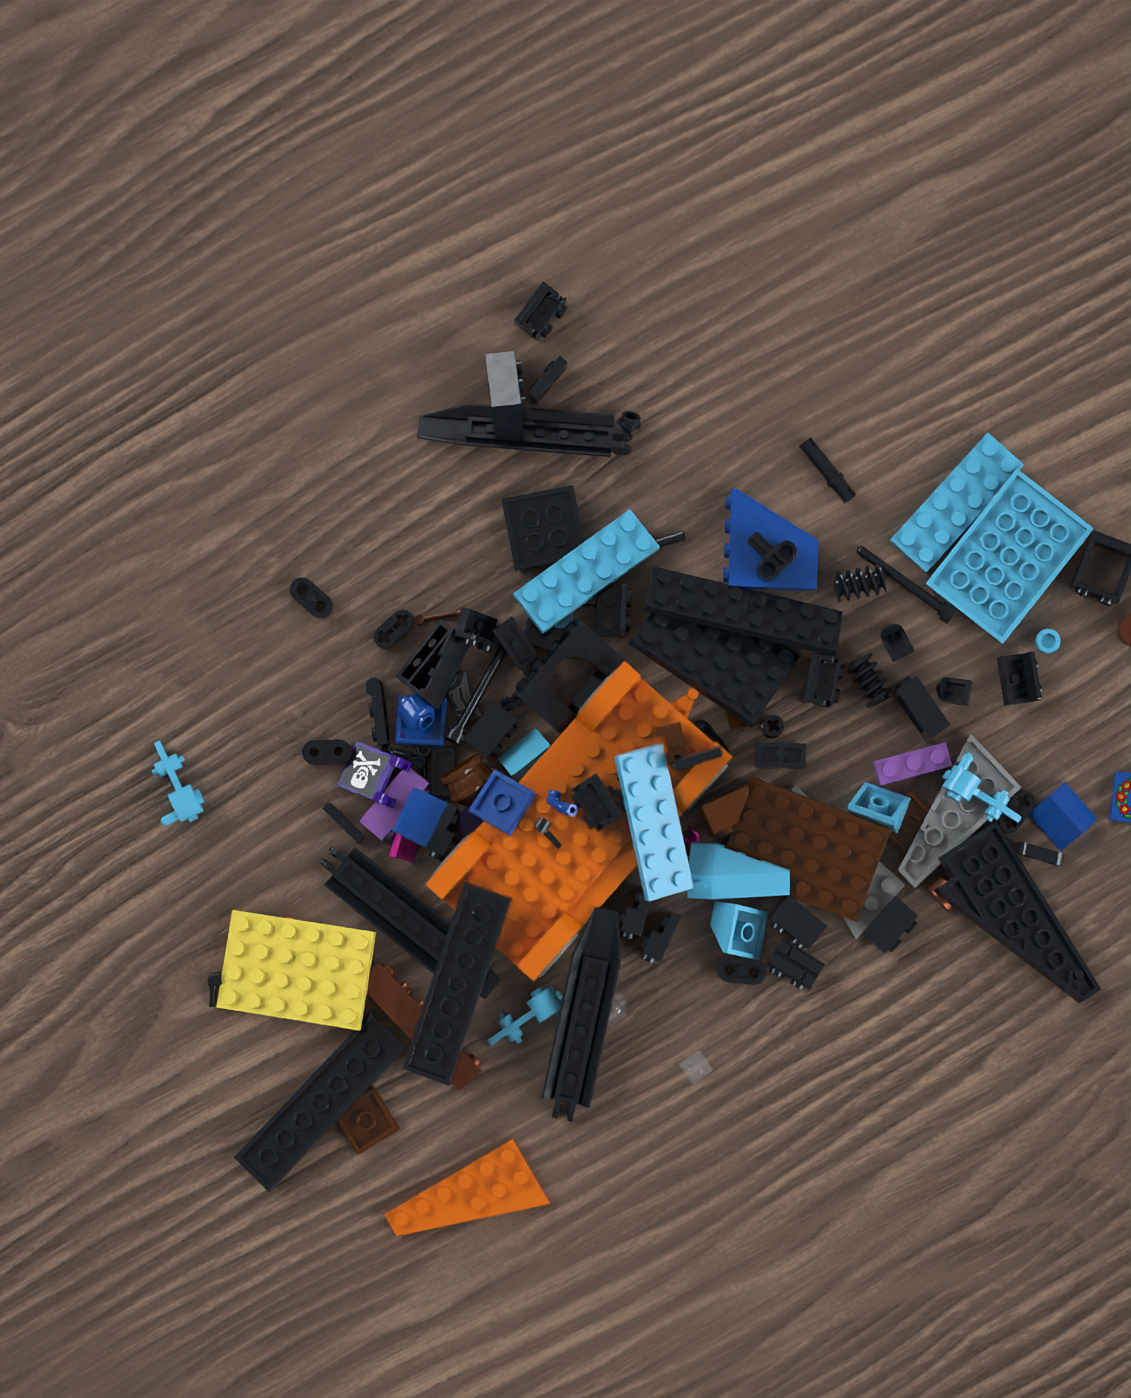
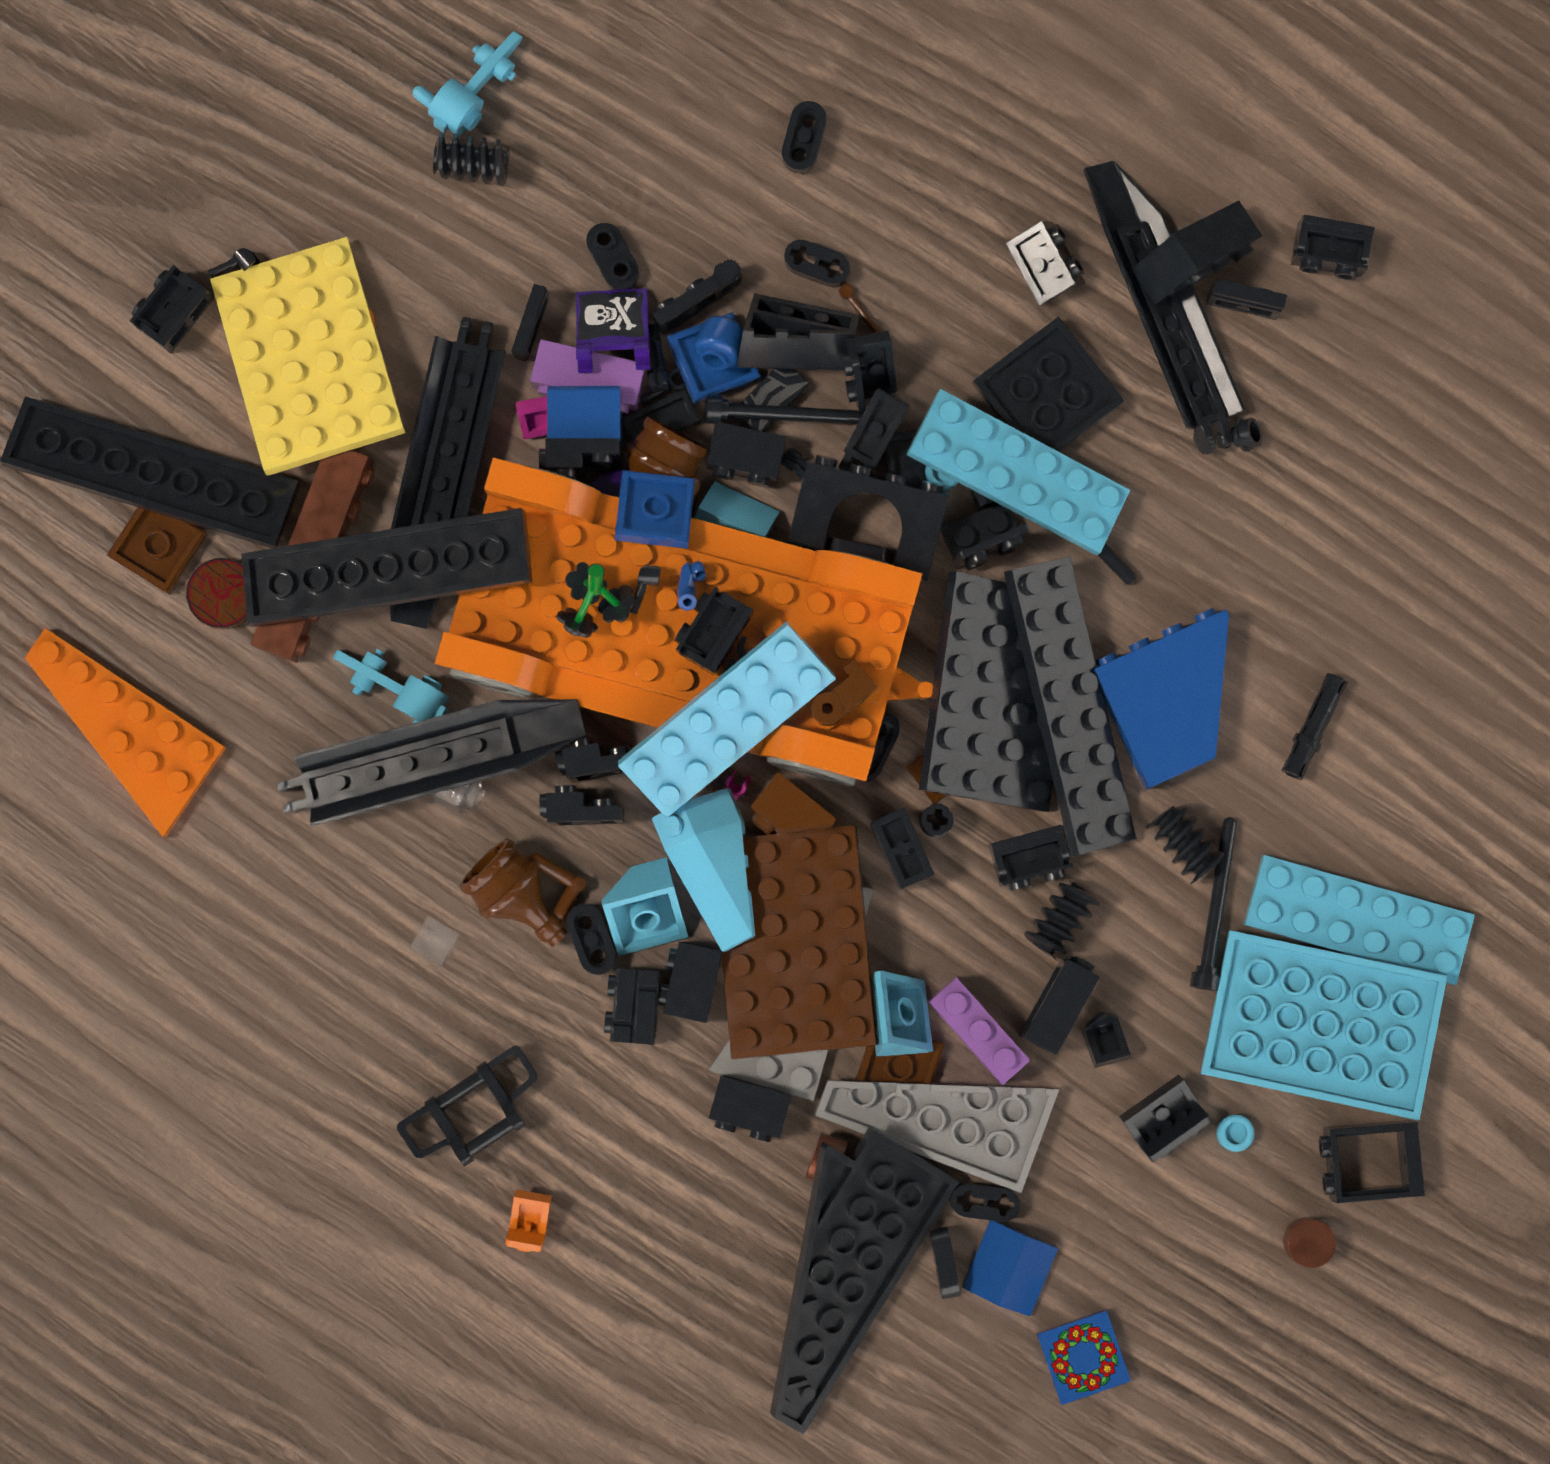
camera: 60 degrees right, 0 degrees up
(222, 809) = (471, 160): none -> black piece
(223, 1040) = (171, 308): none -> black hinge
(416, 1095) = (218, 593): none -> tile
(463, 488) = (1046, 261): none -> bracket
(530, 864) = (588, 584): none -> black plant
(684, 1005) = (508, 887): none -> reddish brown piece
(696, 758) = (838, 732): black tile -> none
(771, 555) = (1162, 704): black beam -> none
(797, 1115) = (437, 1107): none -> black bar
(893, 1092) = (528, 1221): none -> orange bracket
(896, 641) = (1132, 929): black plate -> none
(963, 785) = (985, 1113): medium azure piece -> none

